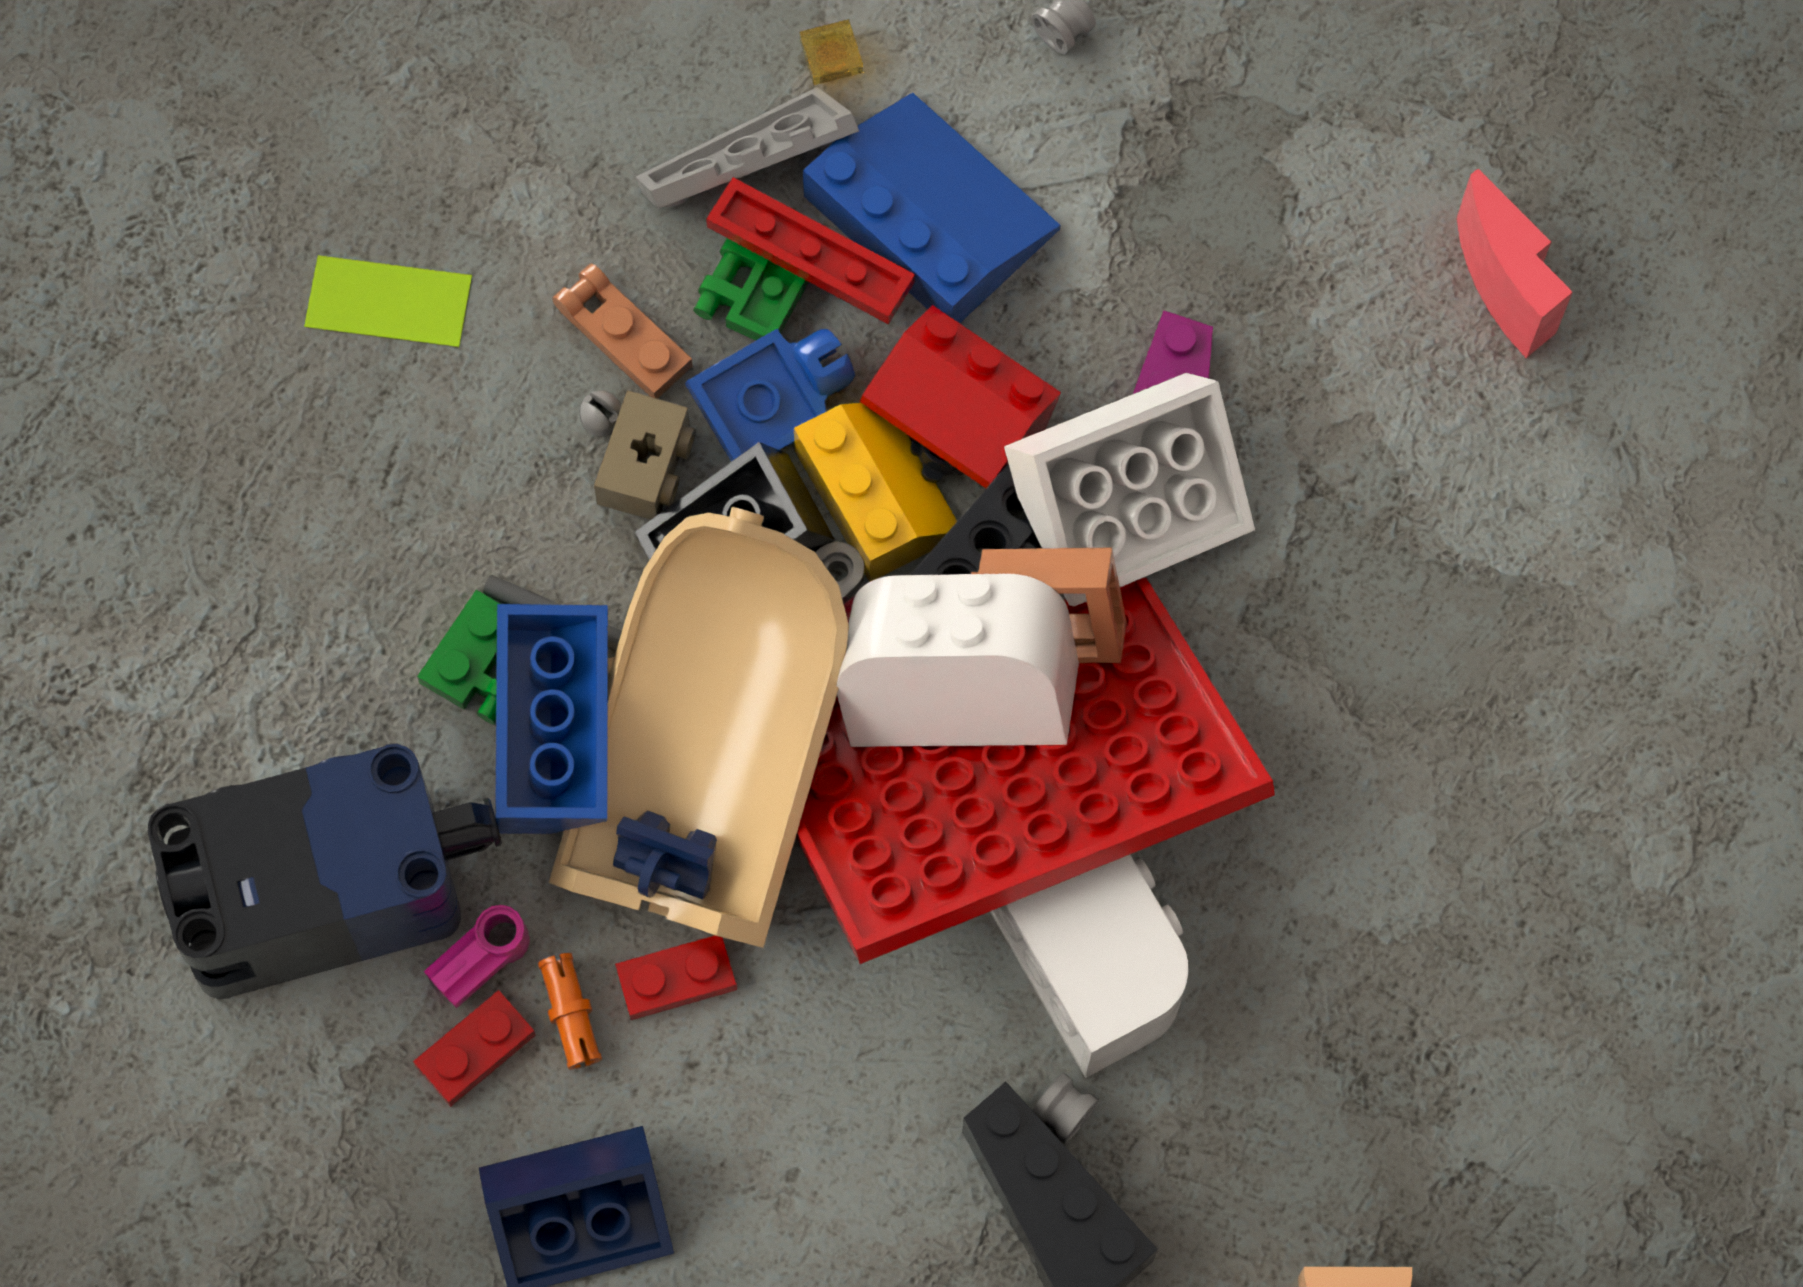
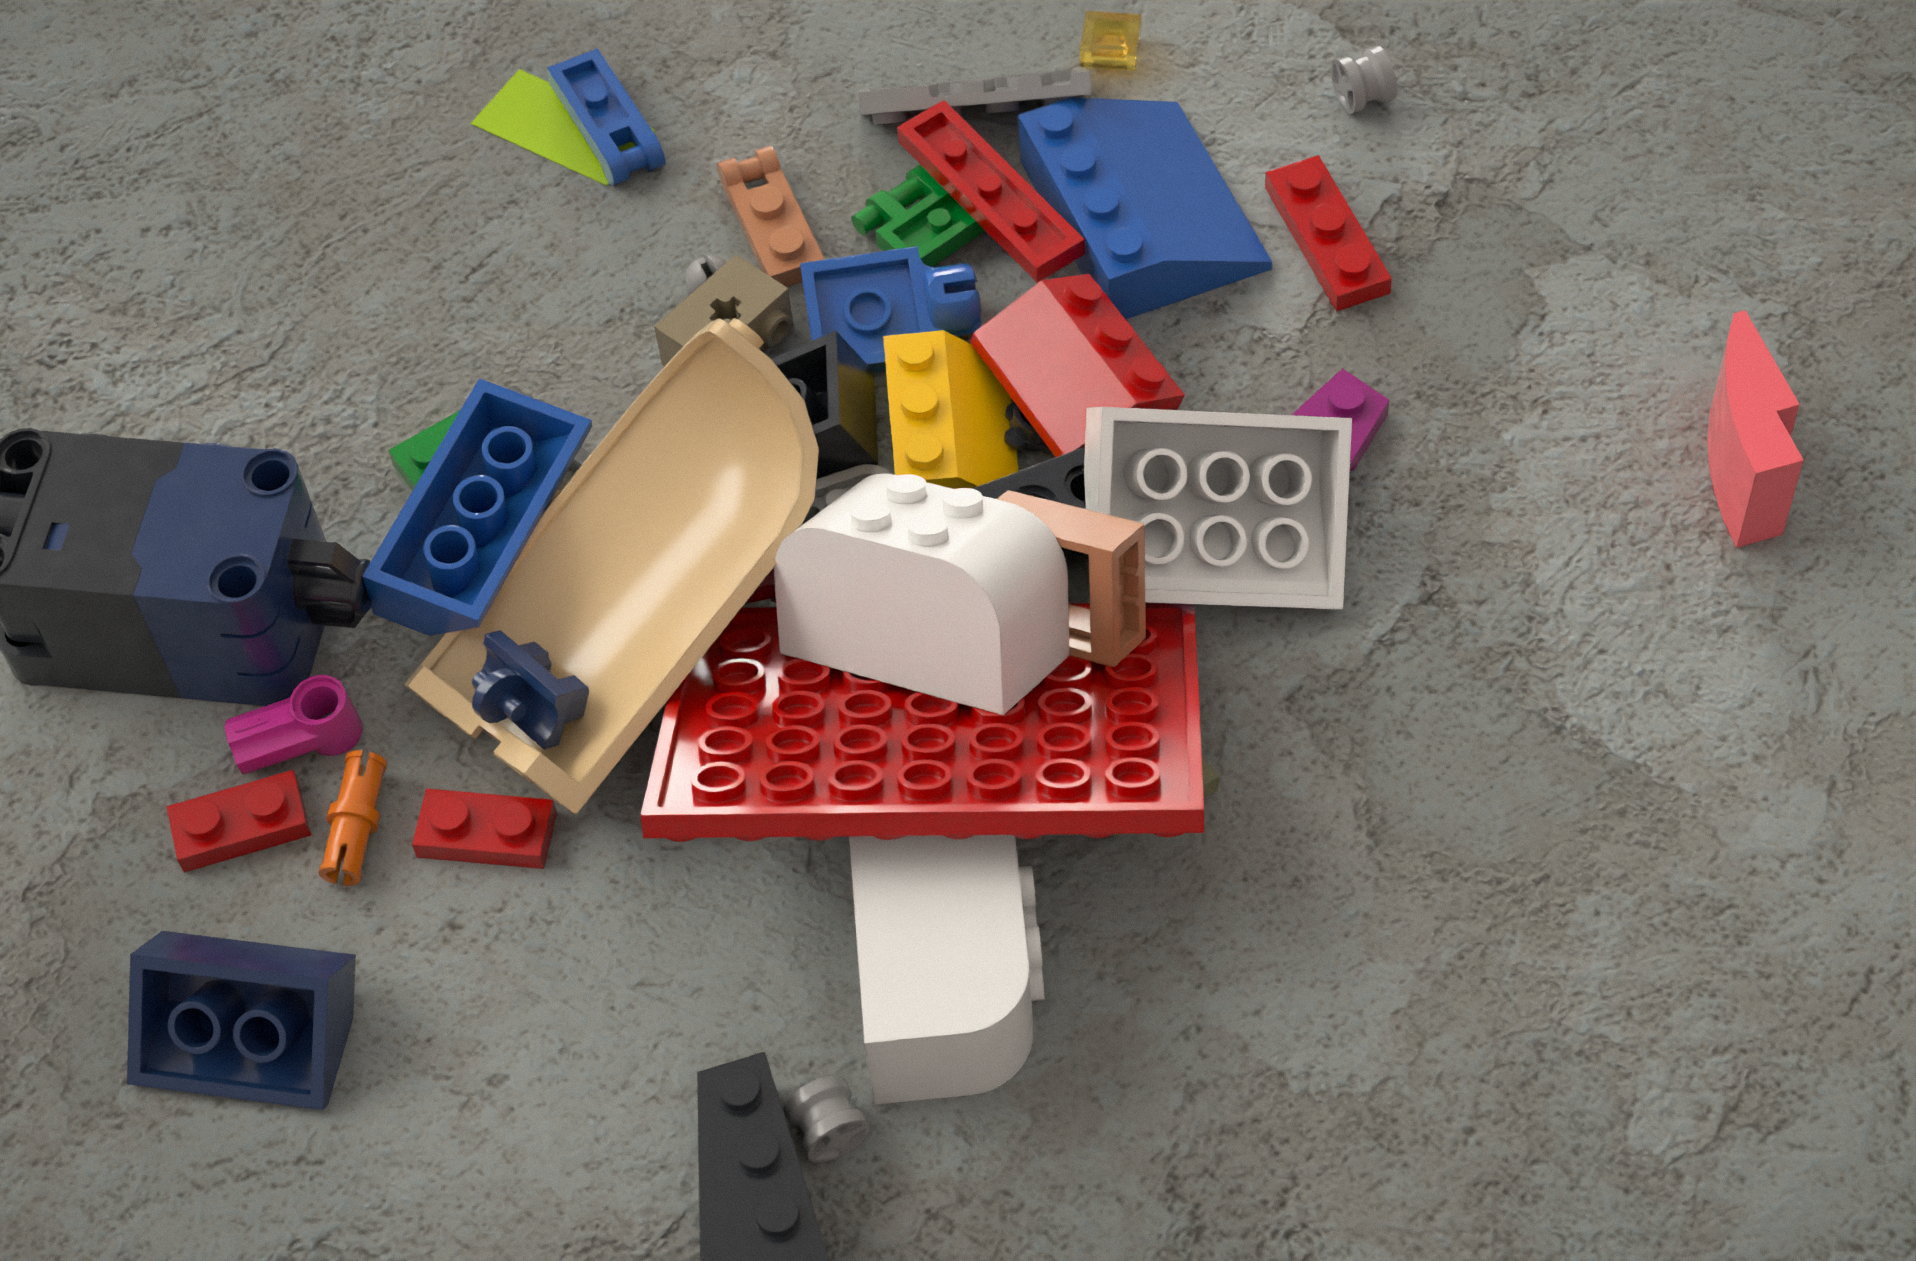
camera: 30 degrees right, 15 degrees down
(428, 281) = (605, 116): none -> blue plate
(1093, 179) = (1328, 233): none -> red plate

